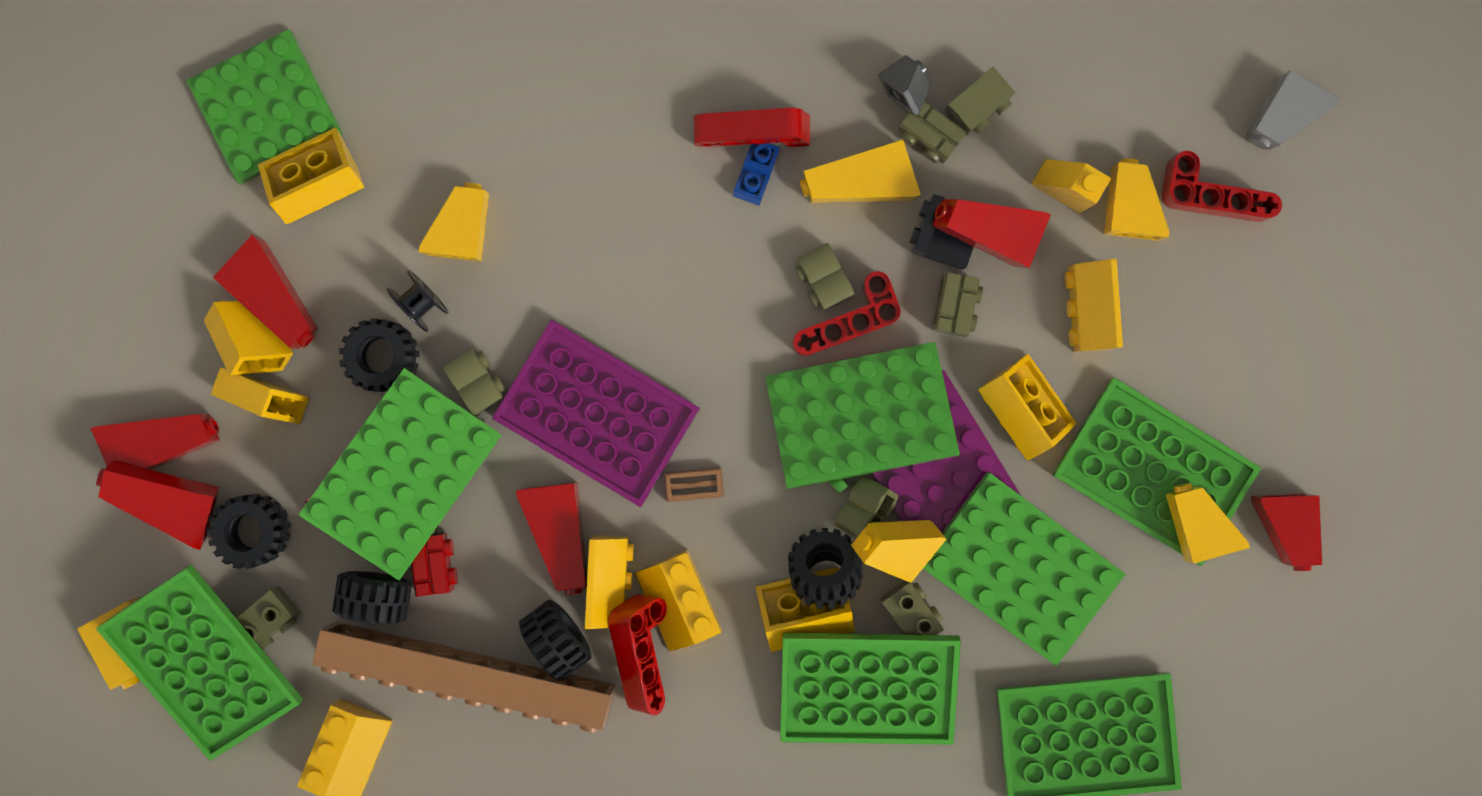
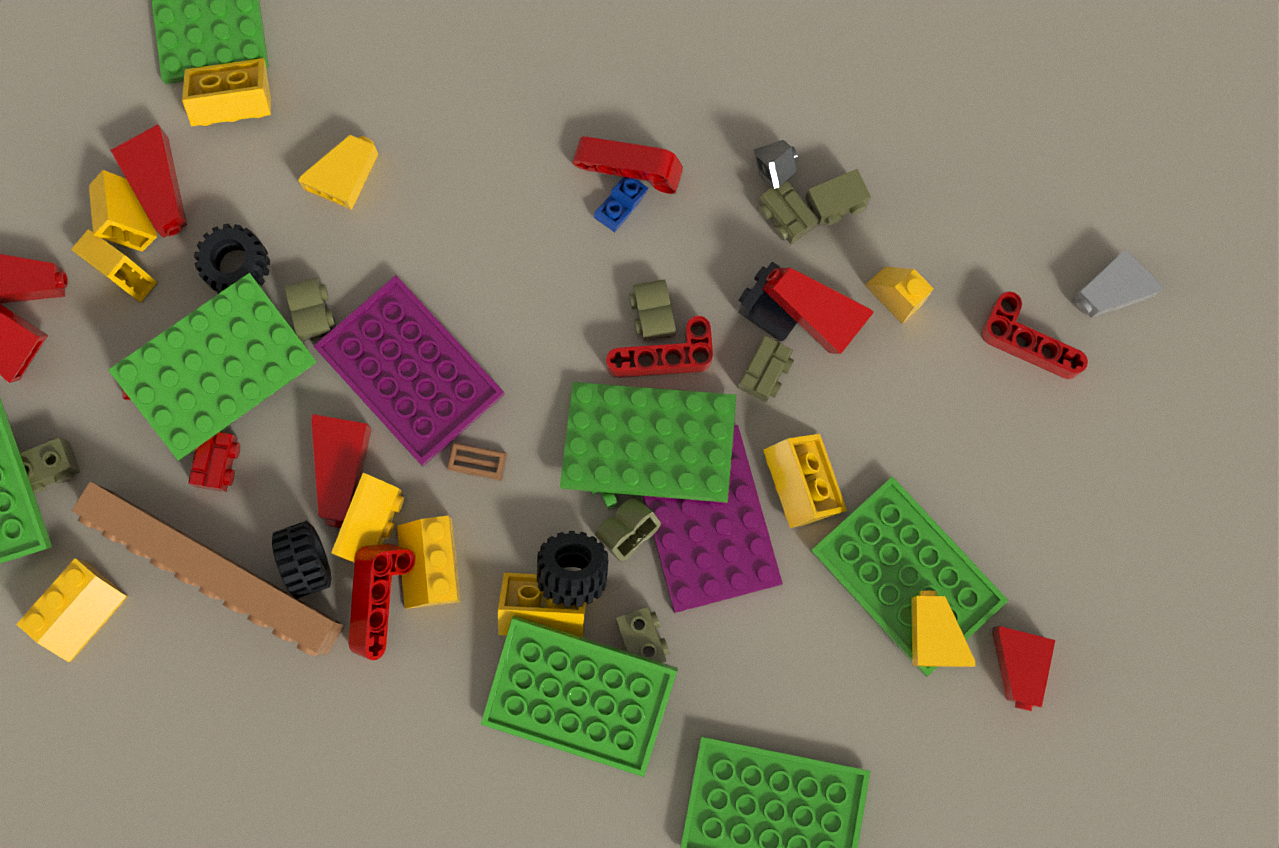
camera: 15 degrees right, 10 degrees down
(226, 536) = (45, 365): black tyre -> none
(371, 597) = (148, 470): black tyre -> none
(417, 301) = (282, 222): black piece -> none
(864, 177) = (718, 234): yellow slope -> none
(899, 546) = (645, 567): yellow slope -> none
(1023, 569) = (757, 628): bright green plate -> none
(1094, 306) = (890, 405): yellow slope -> none
(1134, 203) = (953, 328): yellow slope -> none

